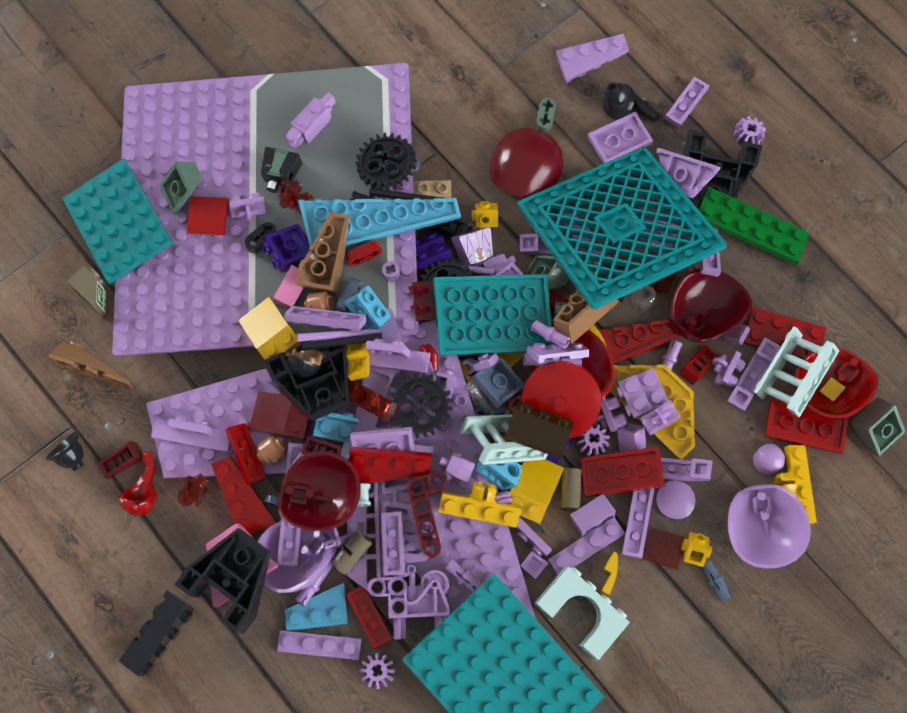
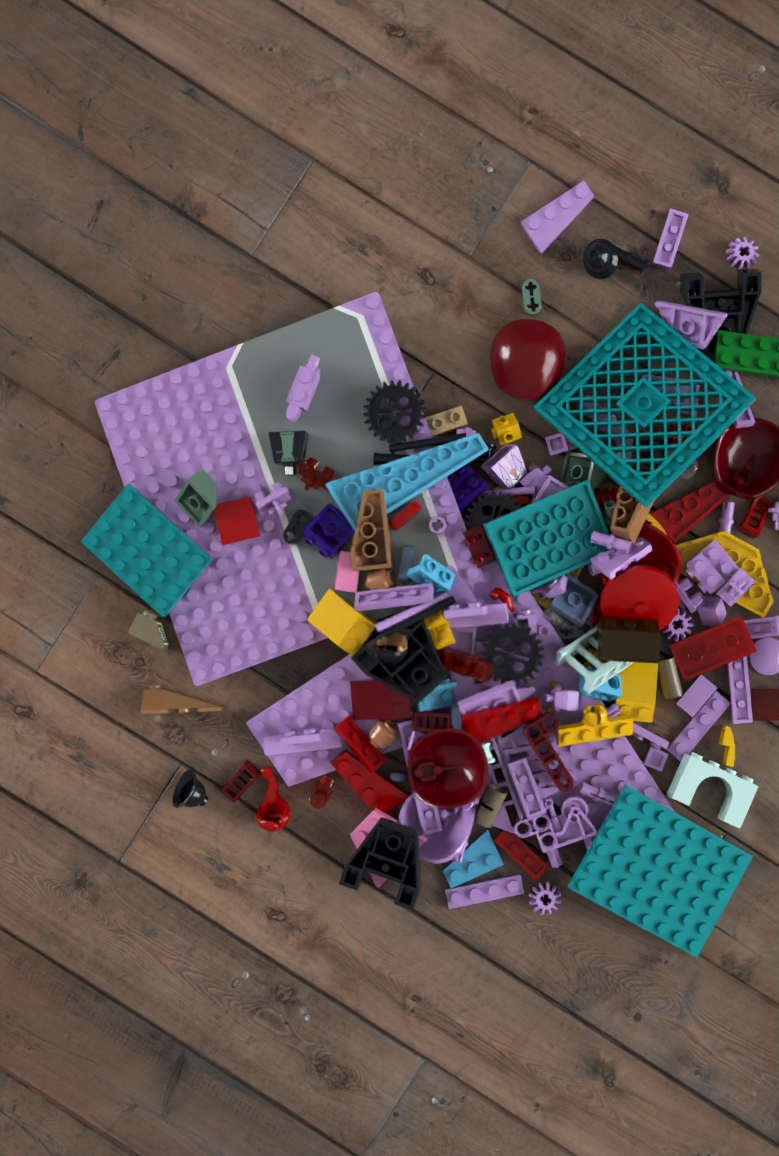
camera: 15 degrees left, 15 degrees up
(156, 634) = (336, 929): black wedge -> none
(620, 138) = (614, 301): lavender plate -> none

